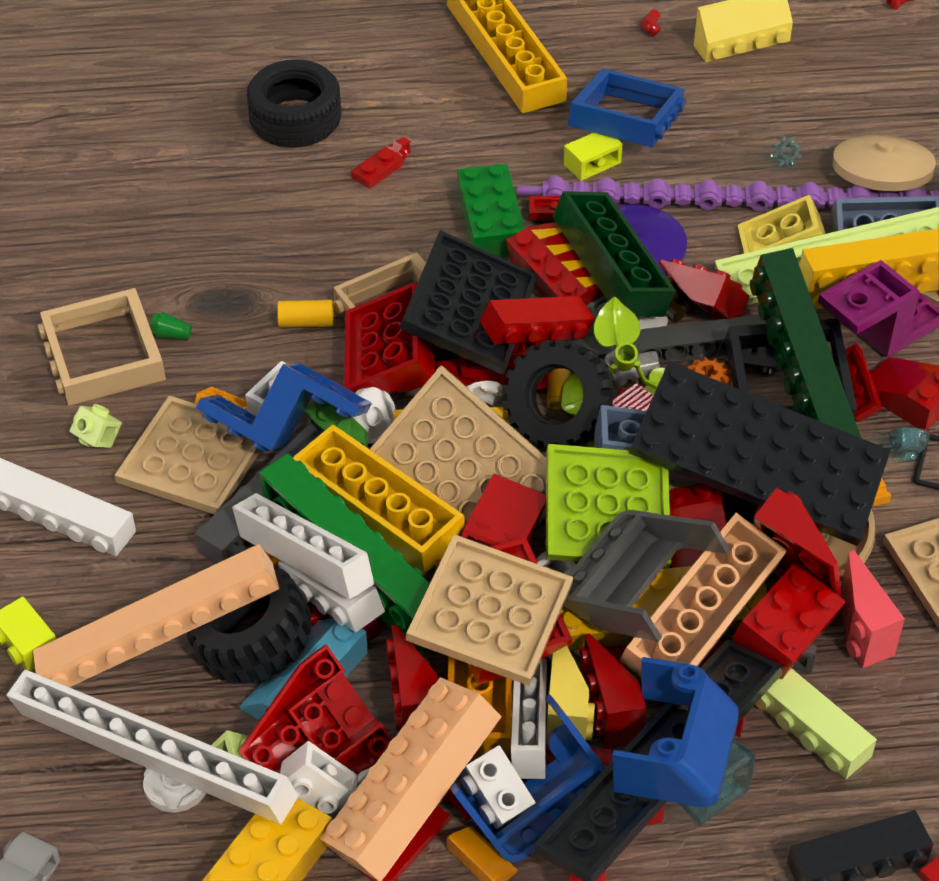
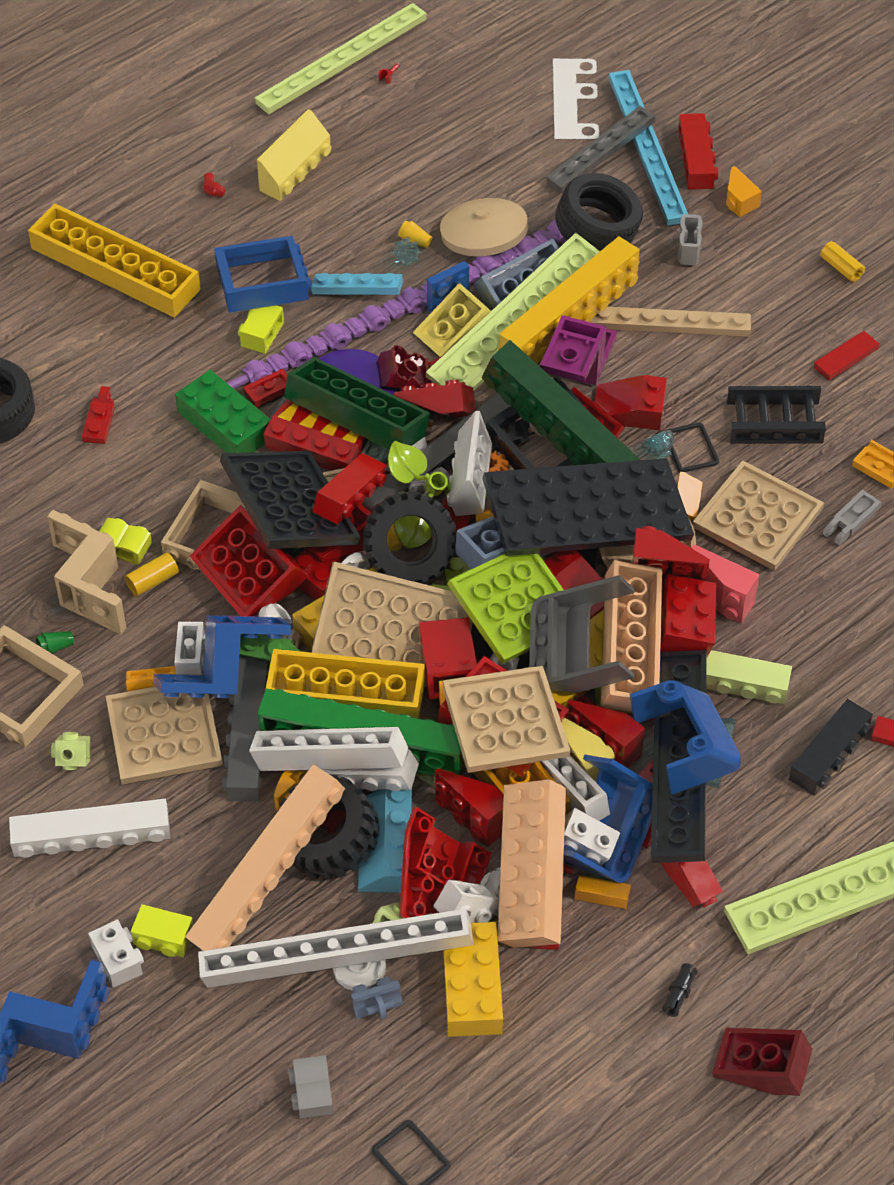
camera: 35 degrees left, 5 degrees up
(159, 825) = (376, 999): none -> sand blue hips
(246, 279) = (86, 571): none -> tan bracket
(307, 272) = (129, 541): none -> neon yellow brick
(693, 349) = (468, 466): none -> white slope
(695, 246) = (402, 369): none -> dark red slope
(715, 157) = (357, 284): none -> medium azure plate
(795, 186) = (444, 282): none -> blue plate
(808, 137) = (414, 233): none -> yellow cone
(900, 508) = (690, 492): none -> slope

